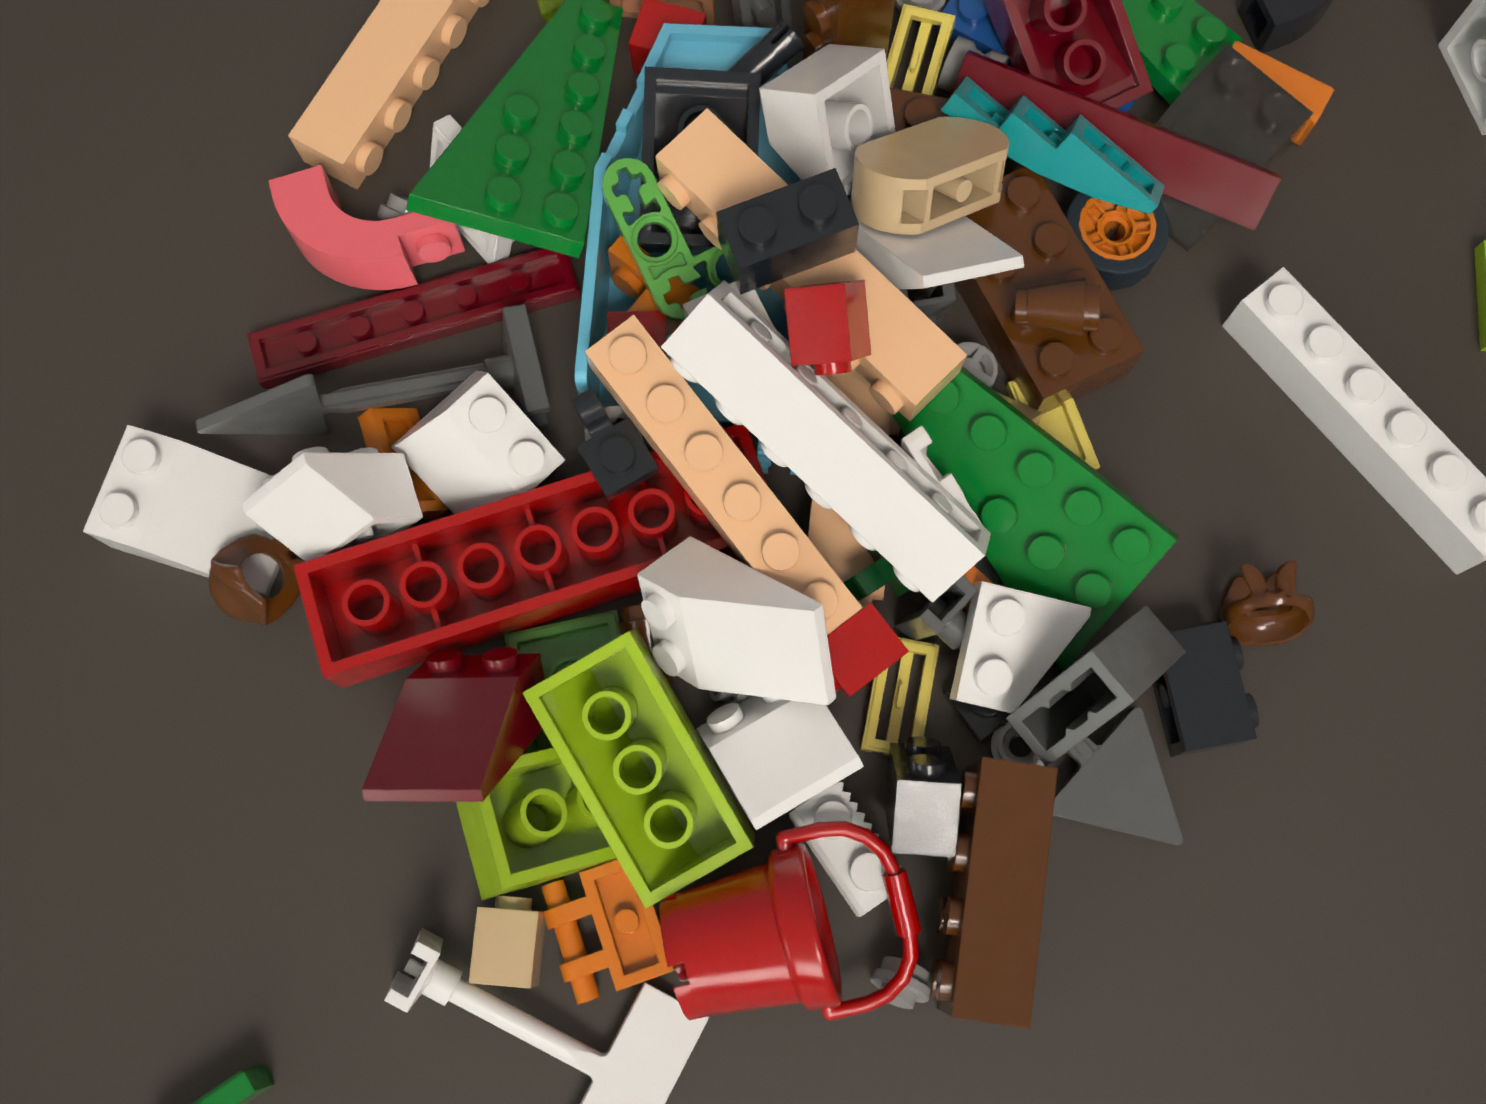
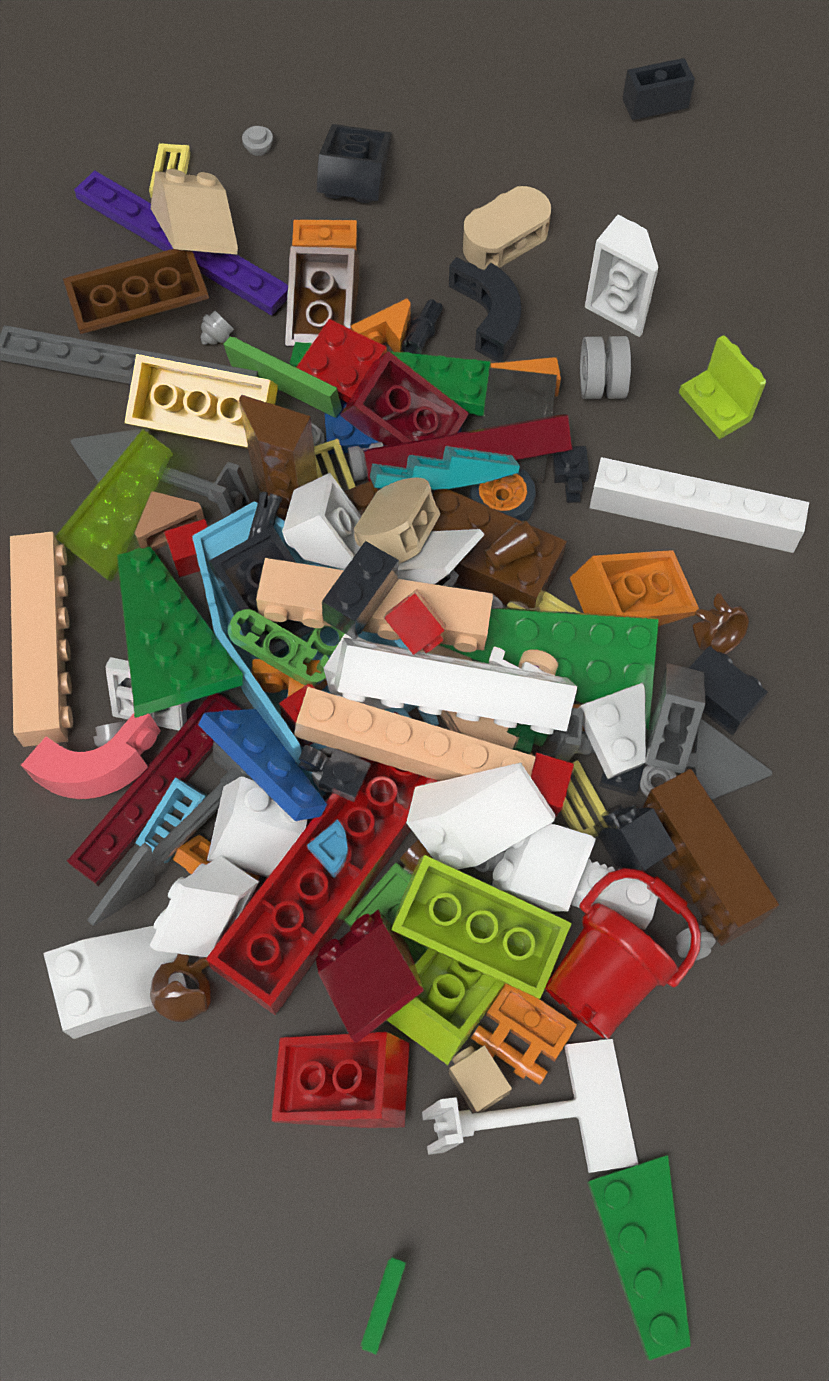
camera: 40 degrees left, 10 degrees down
(356, 849) = (342, 1081): none -> red slope
(412, 345) = (170, 801): none -> medium azure slope
(534, 539) = (331, 848): none -> dark azure tile
(537, 374) = (265, 759): none -> blue wing
(974, 486) = (541, 660): none -> light nougat tile
(1193, 475) = (635, 586): none -> orange slope
(1237, 257) = (572, 469): none -> black plate
(1393, 145) = (605, 367): none -> light grey wheel

